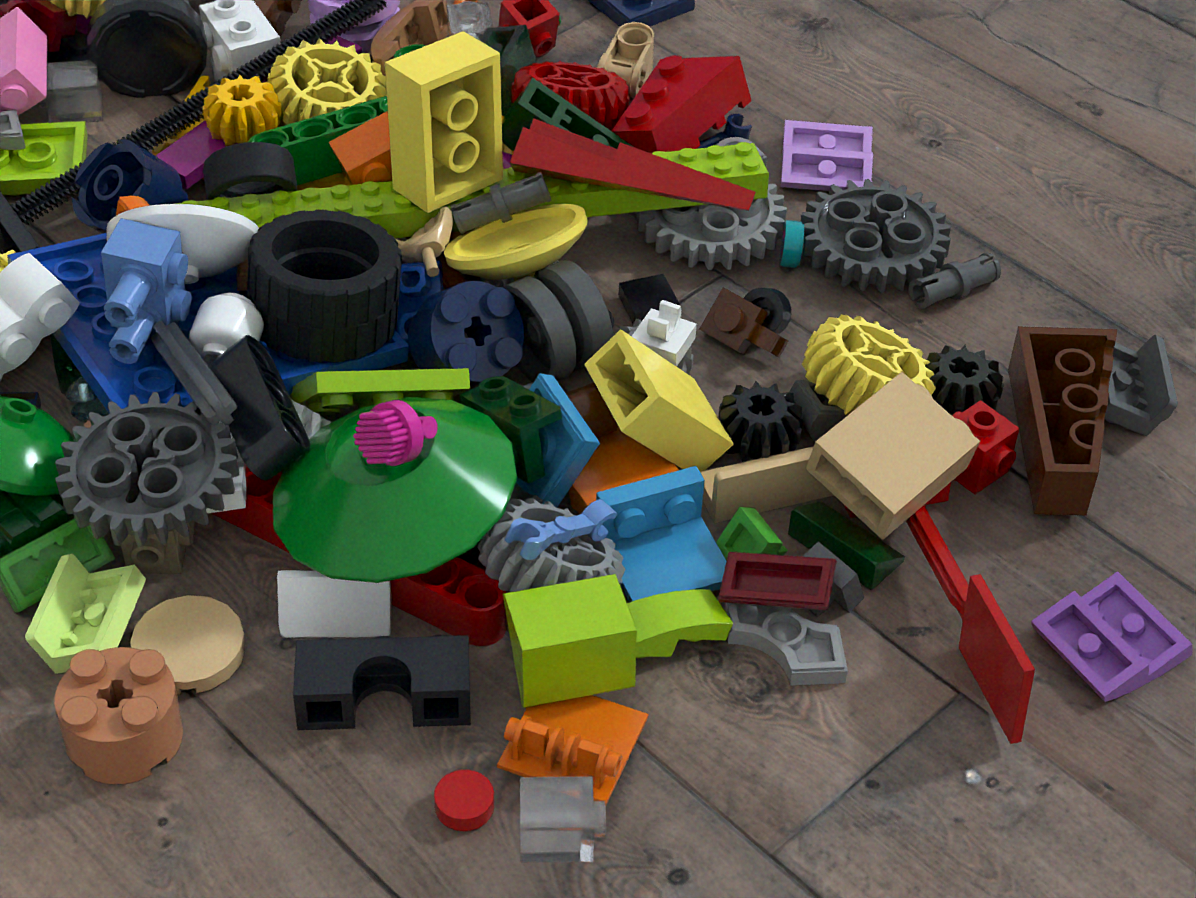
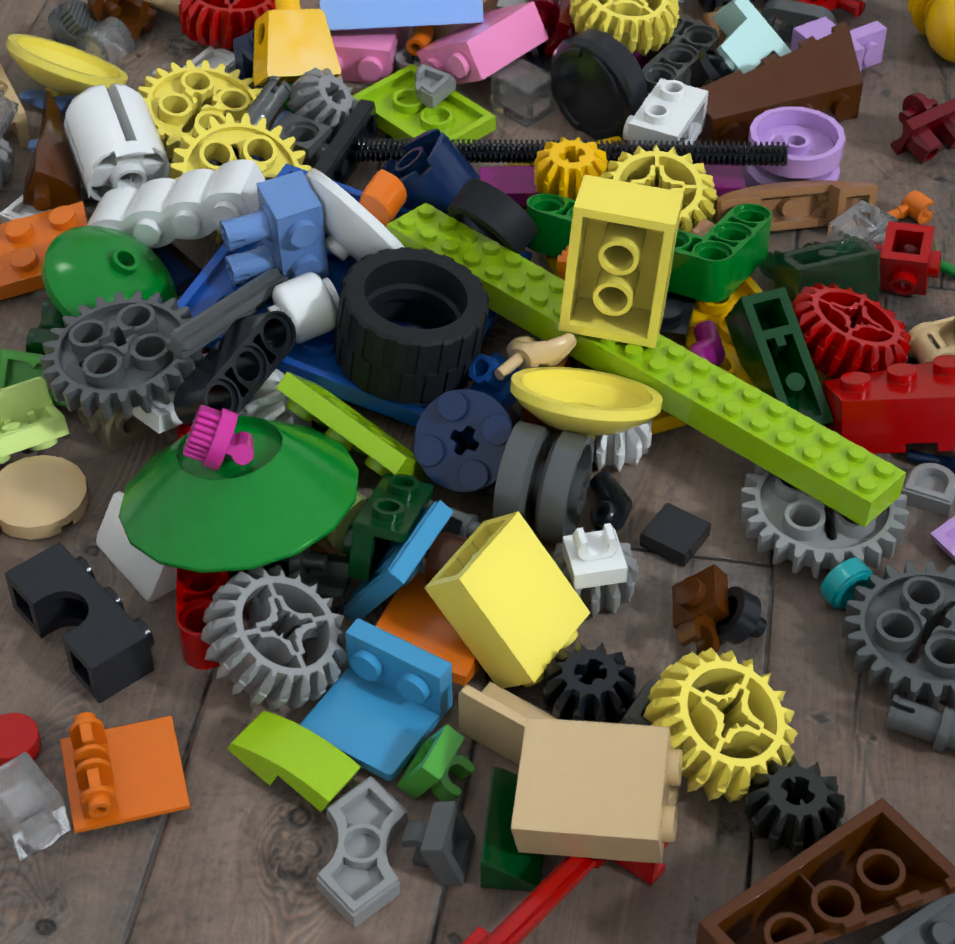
camera: 55 degrees right, 0 degrees up
(500, 203) = (617, 362): dark grey pin -> none
(539, 535) = (322, 634): medium blue piece -> none
(571, 640) = (188, 695): lime slope -> none
(583, 160) = (728, 387): red wedge -> none
(777, 580) = (388, 802): dark red tile -> none
(996, 446) = (718, 860): red brick -> none

